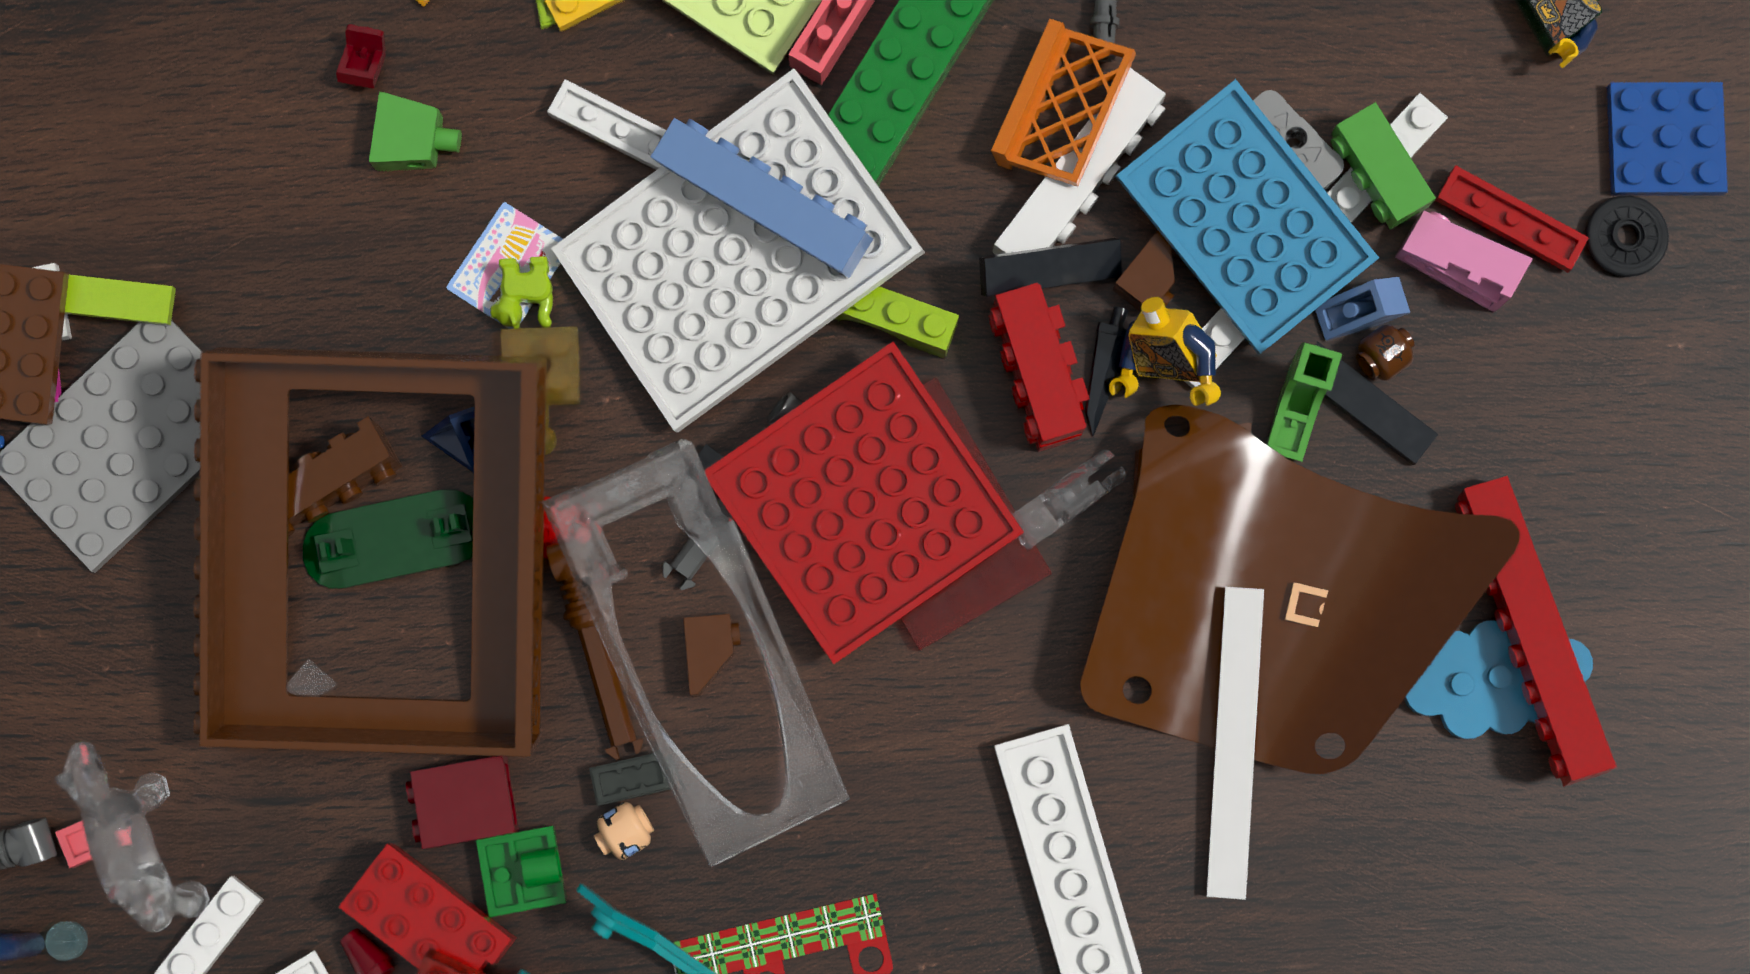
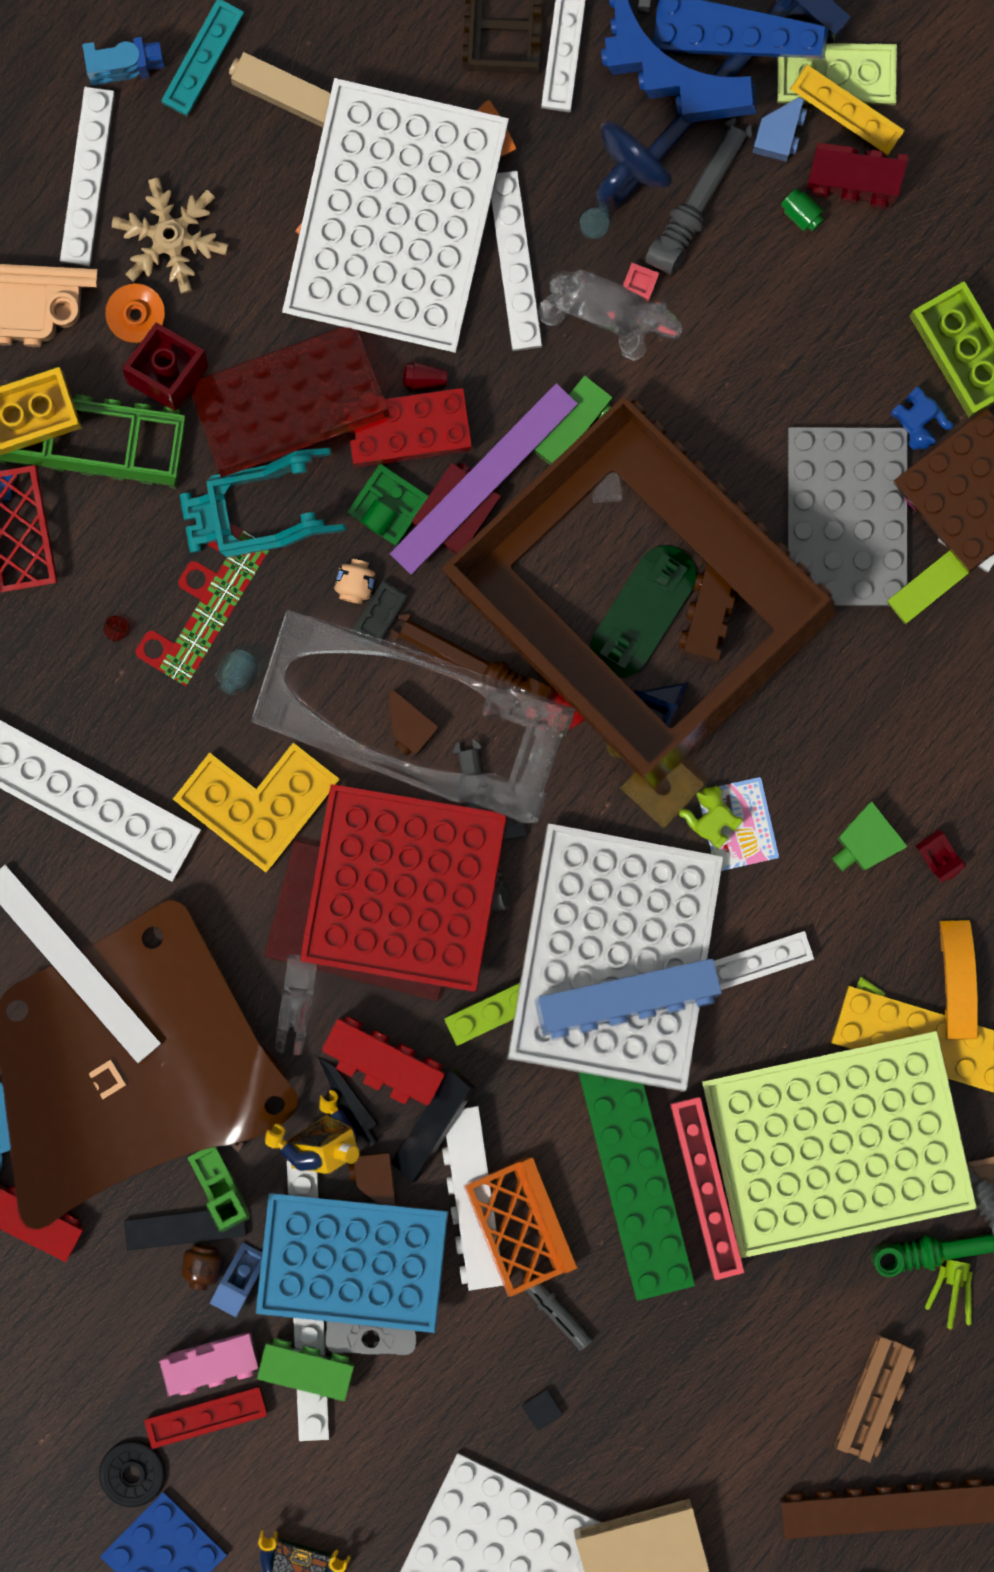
camera: 135 degrees right, 5 degrees up
(277, 775) = (592, 405): none -> bright green brick
(408, 802) = (483, 479): none -> medium lavender tile
(816, 858) = (236, 672): none -> clear light blue head
(932, 700) = (261, 819): none -> yellow plate

